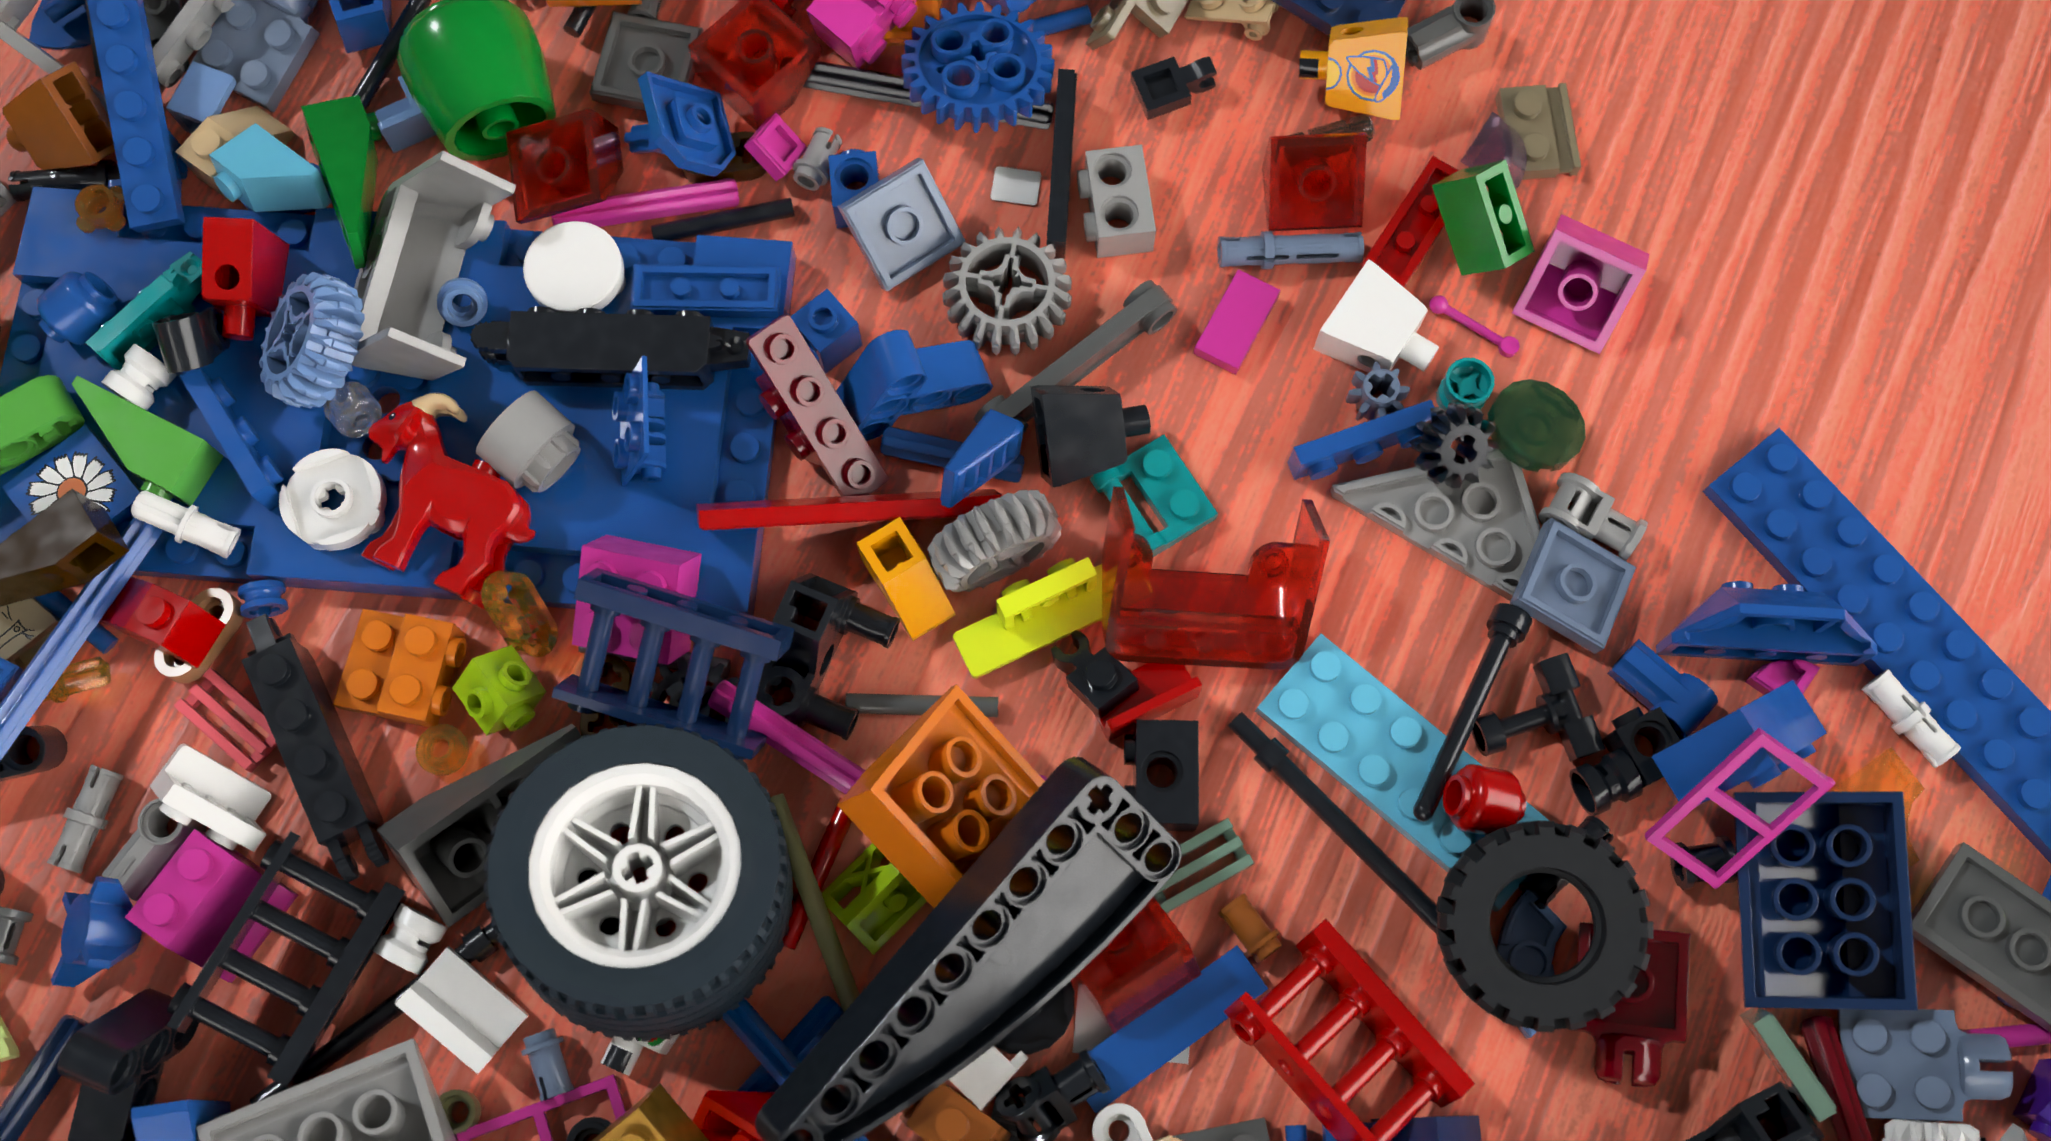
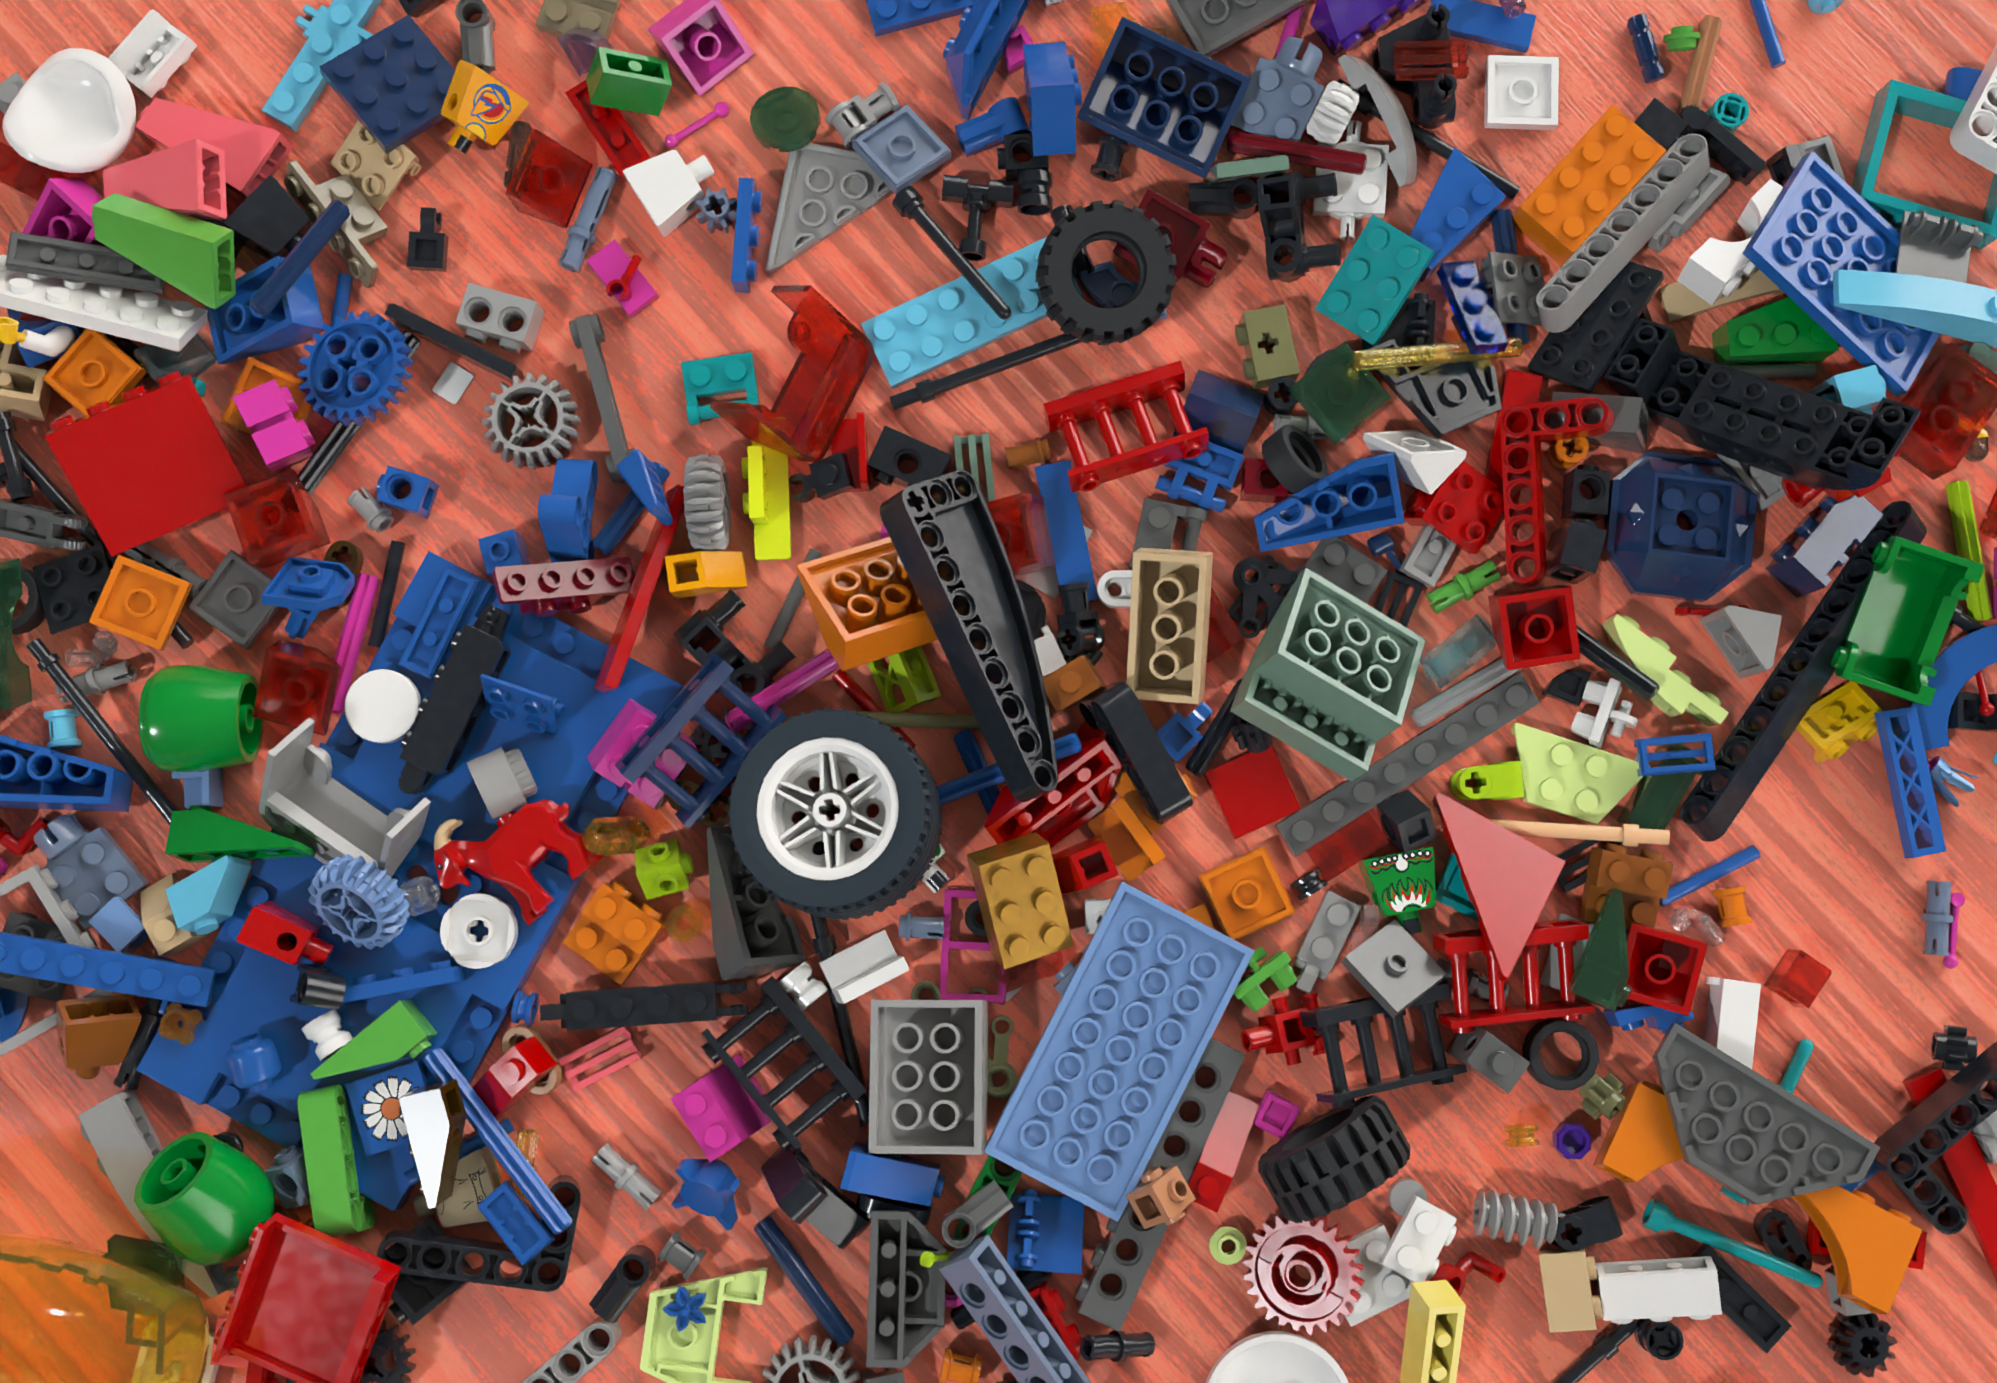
camera: 65 degrees left, 10 degrees up
(148, 850) = (669, 1139): light grey piece -> none
(165, 296) = (278, 1008): teal hinge -> none
(186, 523) = (453, 1035): white axle -> none
(213, 795) = (650, 1080): white bracket -> none
(459, 315) = (381, 796): medium blue plate -> none
(775, 146) = (349, 534): dark pink tile -> none
(902, 224) = (450, 470): tile -> none
(1083, 430) = (656, 413): black torso -> none
(1232, 323) = (624, 281): none -> red hand
(1471, 379) = (737, 144): teal wheel -> none
(1472, 437) = (781, 190): black gear -> none
(1483, 799) = (1013, 271): red head -> none
(1709, 788) = (1070, 130): dark pink window -> none
(1726, 1039) = (1218, 200): none -> black piece

